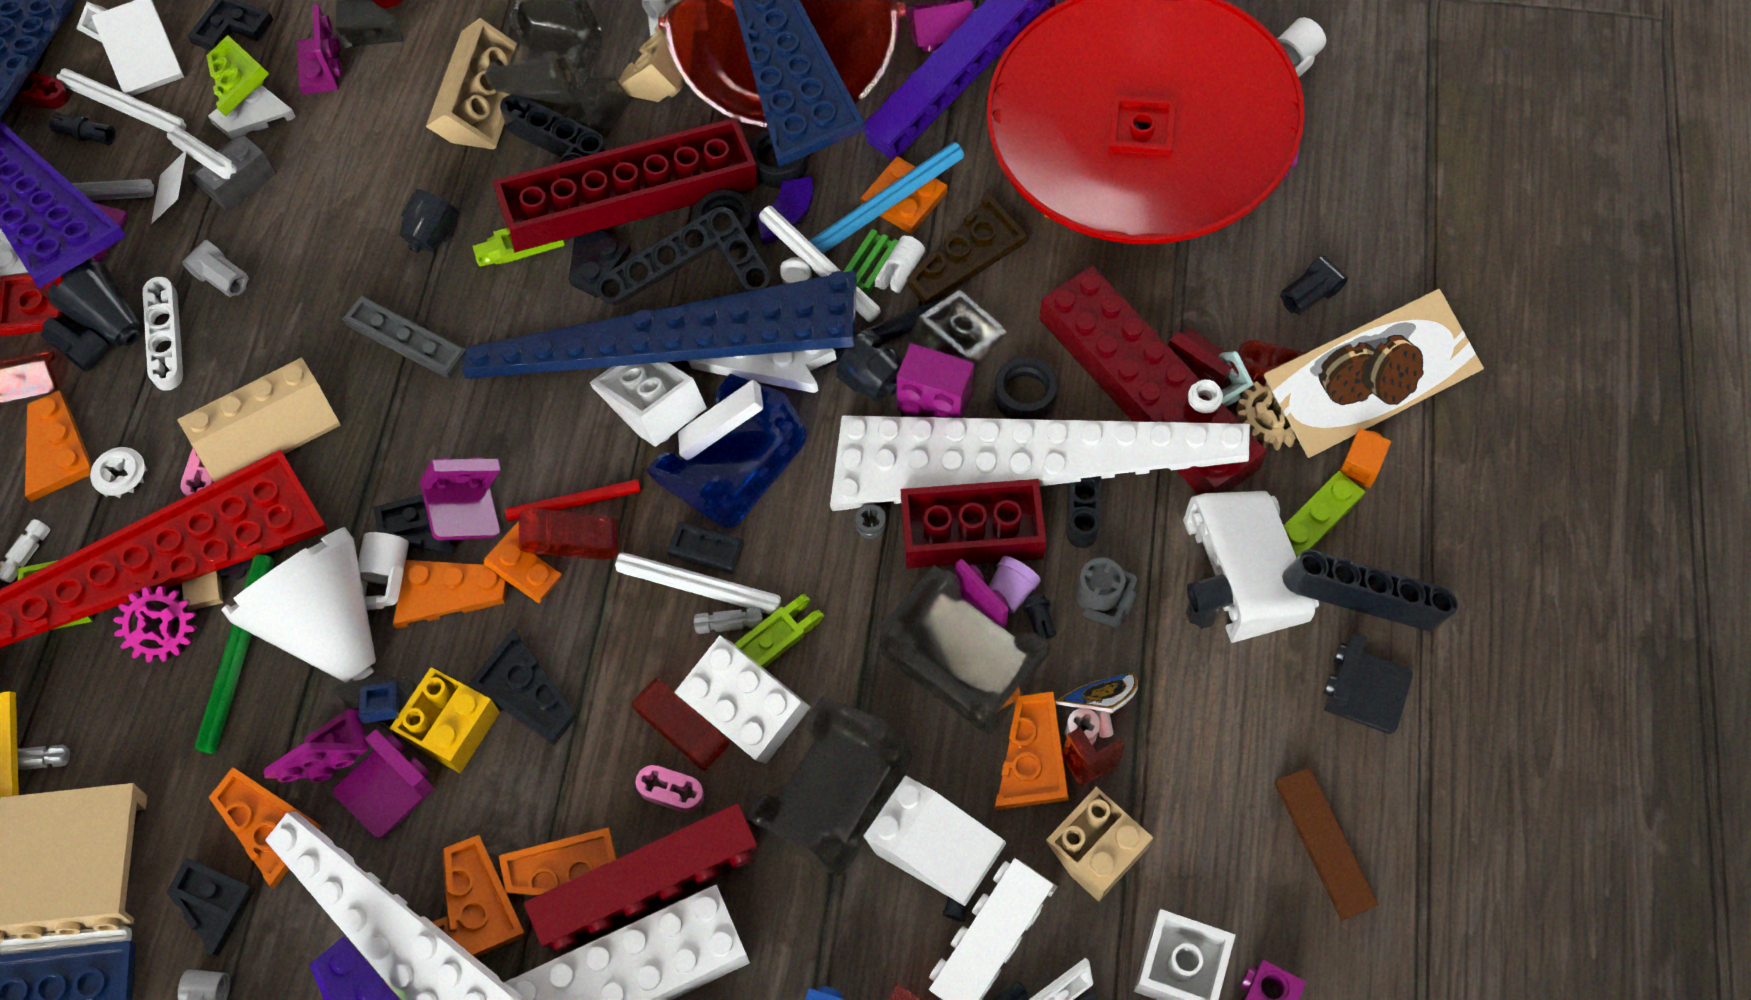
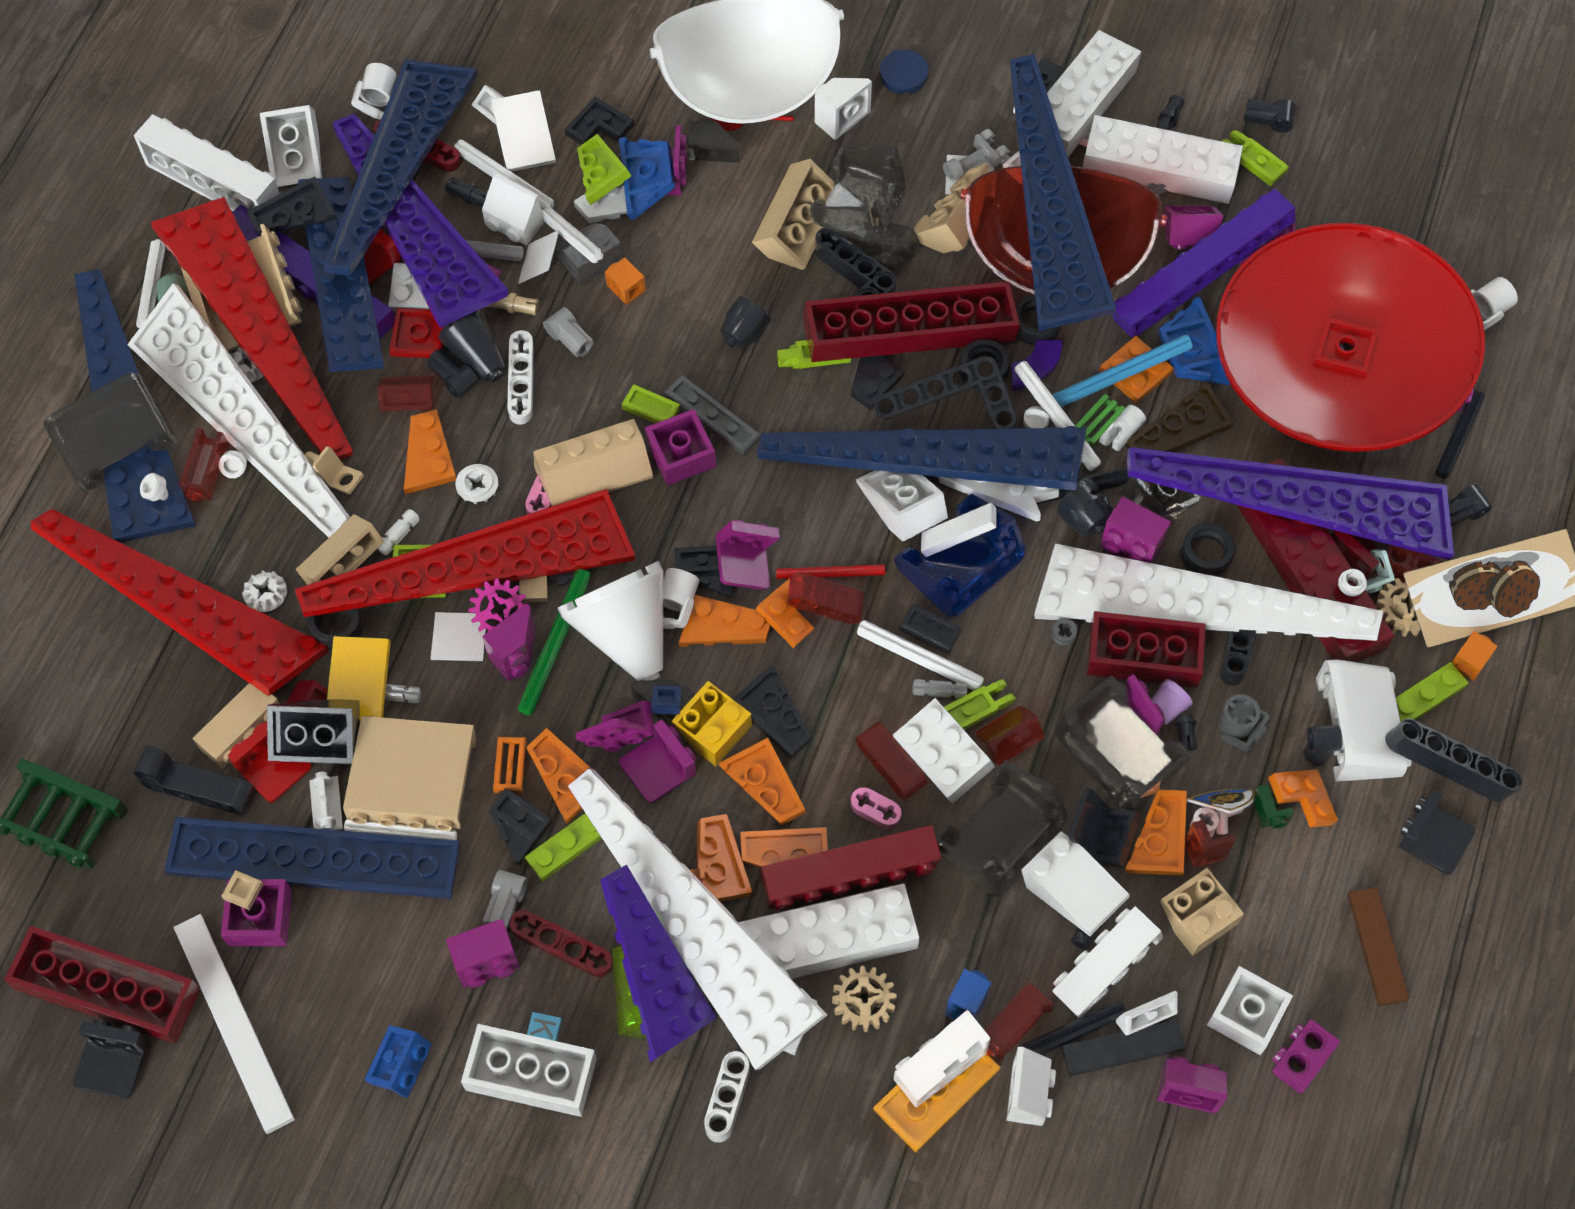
camera: 10 degrees right, 0 degrees up
(110, 671) = (457, 637): none -> white sticker
(130, 137) = (512, 210): none -> white slope
(145, 247) = (515, 303): none -> tan pin
(176, 664) = (512, 643): none -> magenta slope
(207, 824) = (518, 787): none -> orange tile
(270, 923) = (563, 847): none -> lime plate
(279, 197) = (625, 280): none -> orange brick
(291, 69) = (650, 173): none -> blue wing
(327, 340) = (649, 405): none -> lime tile
(366, 381) = (680, 447): none -> magenta brick
(524, 780) = (765, 780): none -> orange wing
(825, 661) = (1011, 734): none -> clear red panel
(958, 762) = (1103, 830): none -> black bracket
(979, 169) = (1202, 360): none -> blue wing
(1154, 692) = (1266, 808): none -> dark green bracket
(1195, 303) = (1370, 507): none -> dark purple wing
(1202, 660) = (1309, 790): none -> orange plate
(1292, 204) = (1459, 435): none -> black axle

